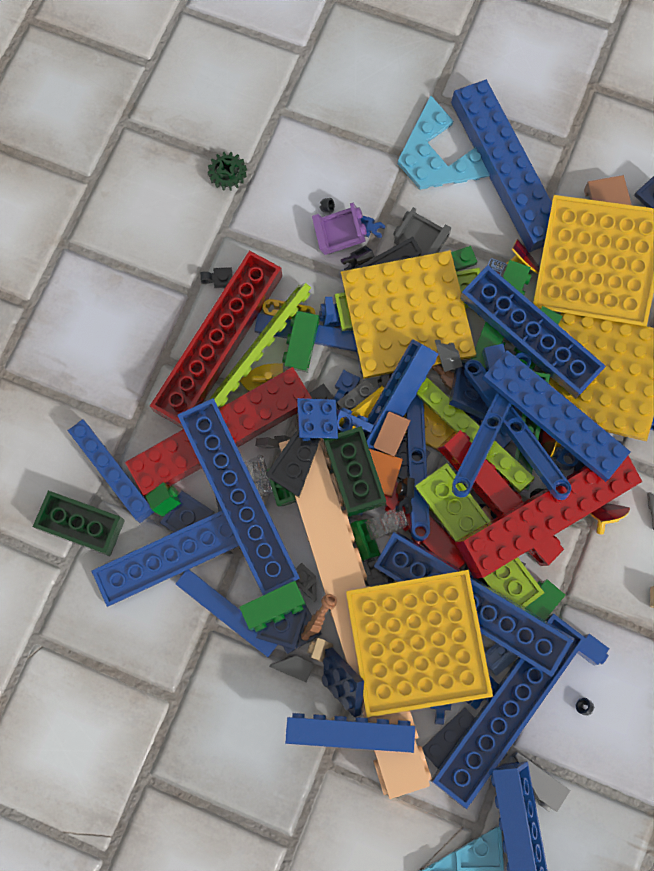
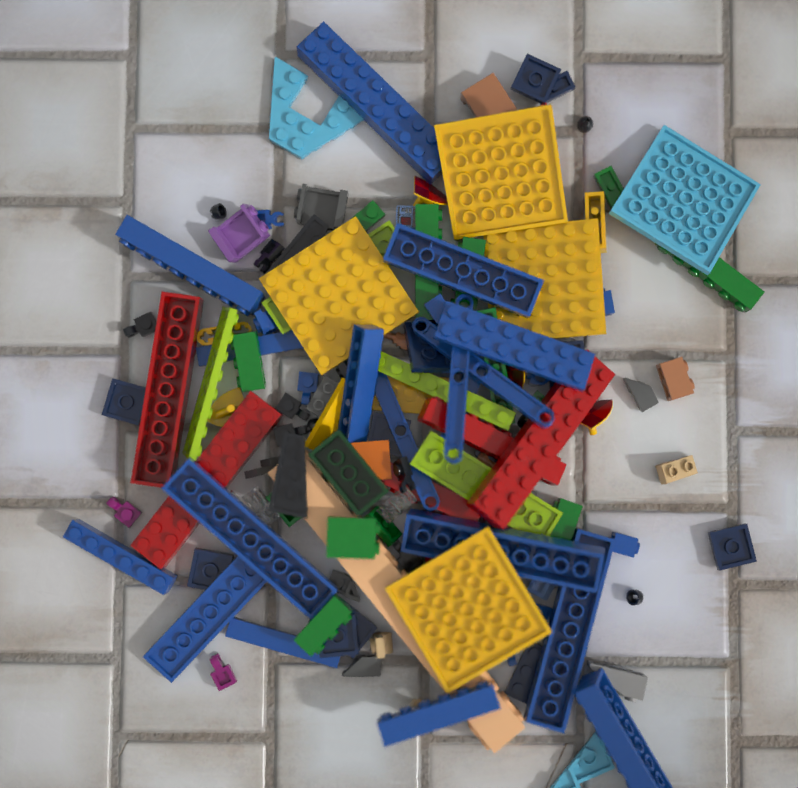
camera: 25 degrees left, 10 degrees up
(79, 523) = (111, 618): dark green brick -> none
(133, 434) = (126, 512): none -> magenta plate
(157, 620) = (223, 675): none -> magenta plate
(163, 499) = (181, 565): green brick -> none
(174, 335) = (124, 402): none -> dark blue plate
(230, 164) = (111, 206): dark green gear -> none
(283, 239) = (190, 265): none -> blue brick
(314, 626) = (368, 627): nougat piece -> none
(317, 418) = (294, 439): blue hinge -> none
(334, 530) = (352, 537): none -> green panel
(343, 682) = (413, 667): dark blue plate -> none
(350, 421) = (326, 425): blue plate -> none
(392, 433) = (369, 420): nougat panel -> none
(448, 355) = (393, 324): dark grey slope -> none

